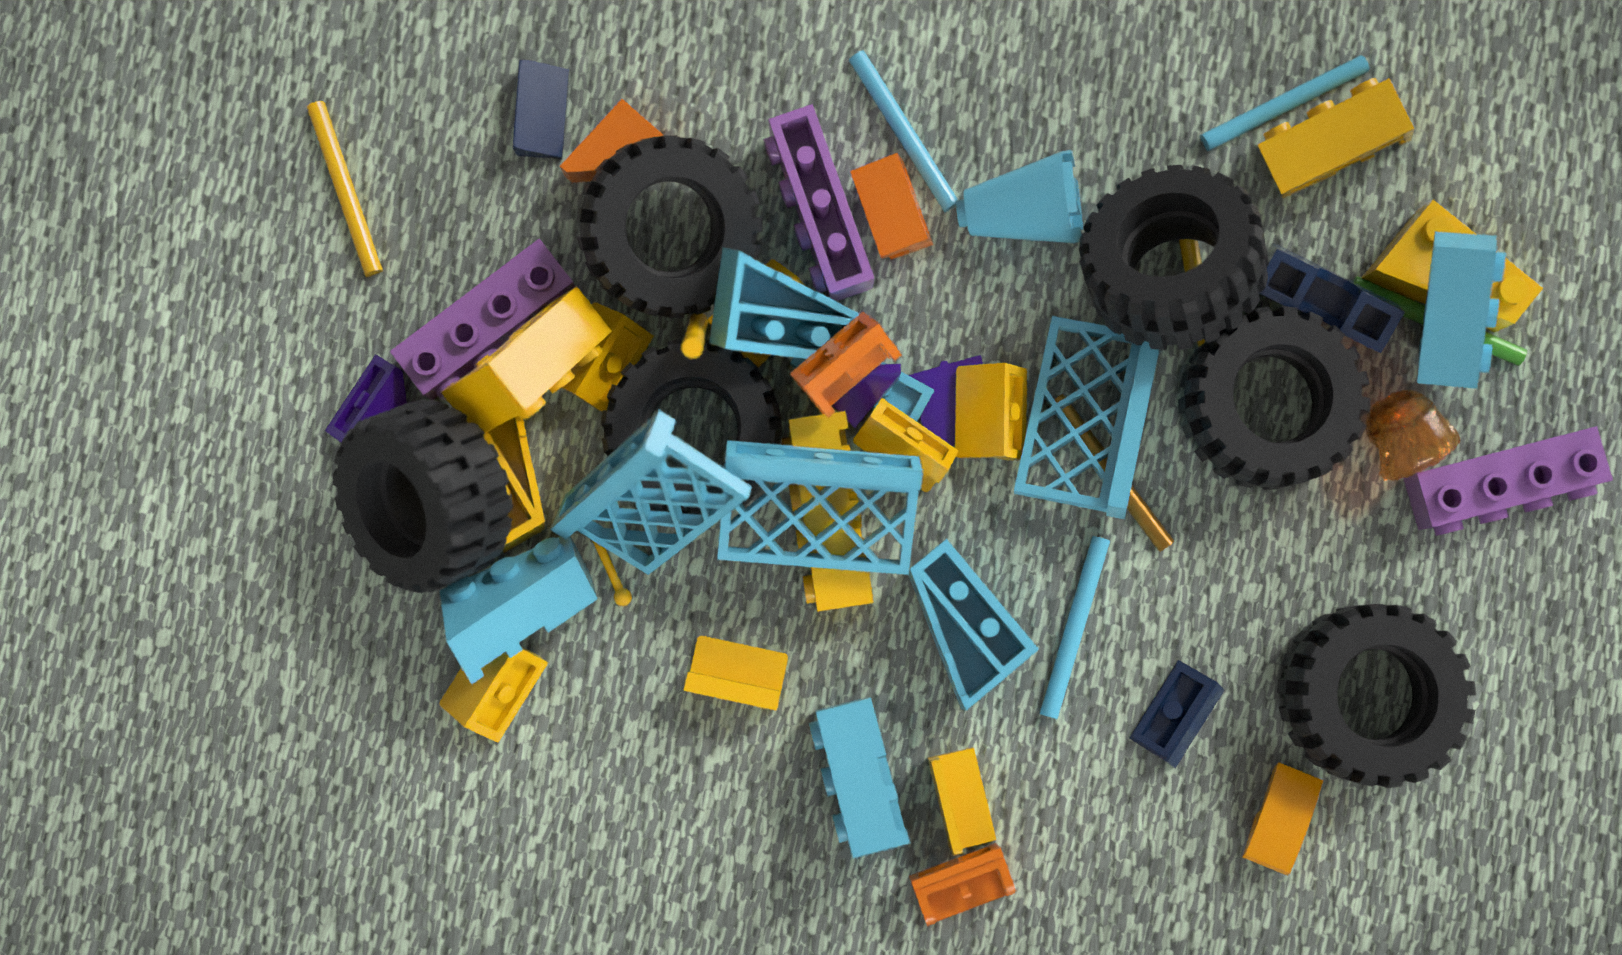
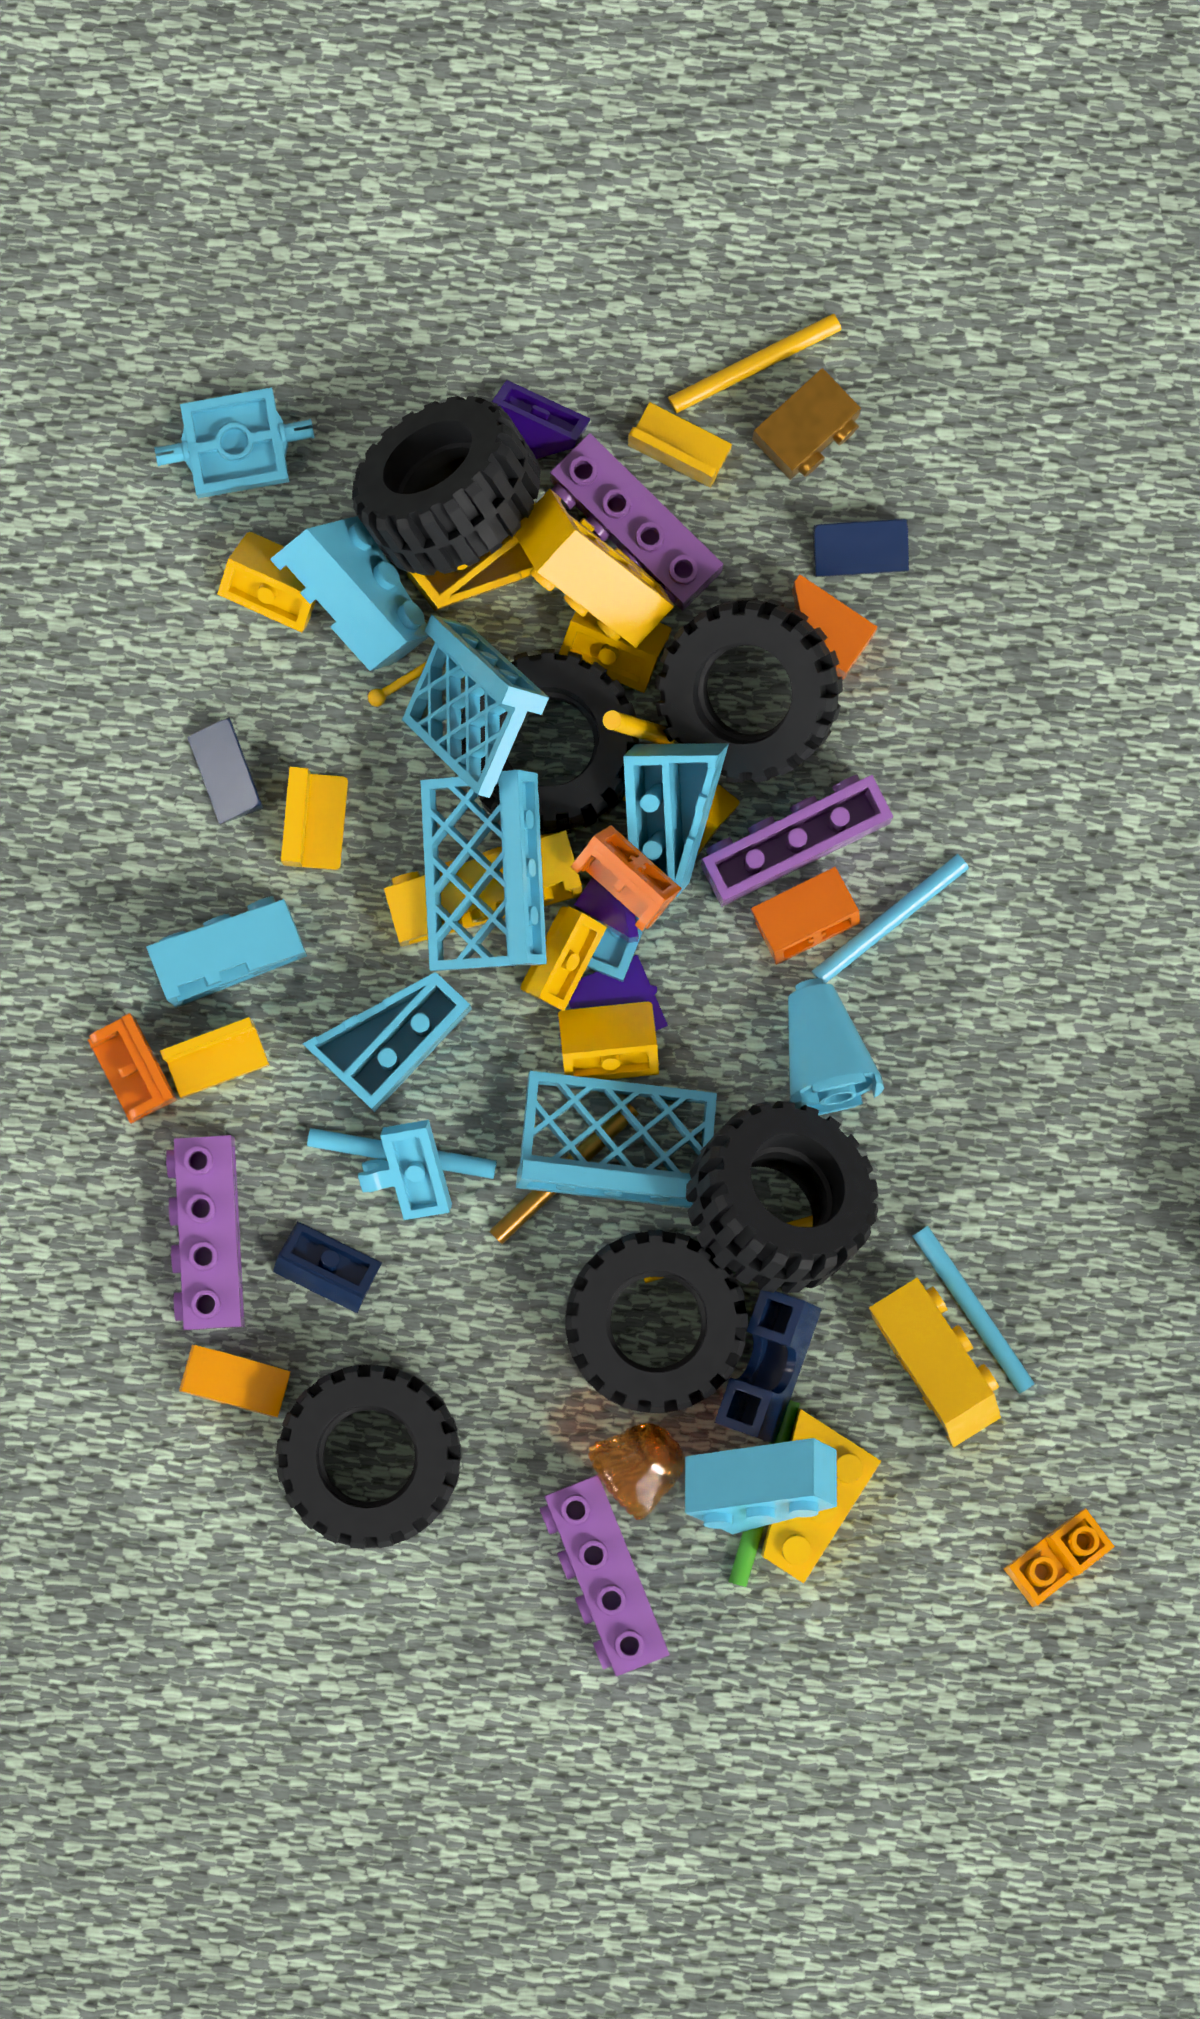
camera: 85 degrees right, 0 degrees up
(347, 707) = (234, 442): none -> medium azure plate
(412, 144) = (807, 425): none -> pearl gold brick
(414, 269) = (679, 444): none -> yellow panel
(676, 756) = (225, 771): none -> slope
(1094, 619) = (411, 1168): none -> medium azure plate
(1136, 828) = (208, 1232): none -> medium lavender brick
(1522, 50) = (1059, 1557): none -> light orange slope

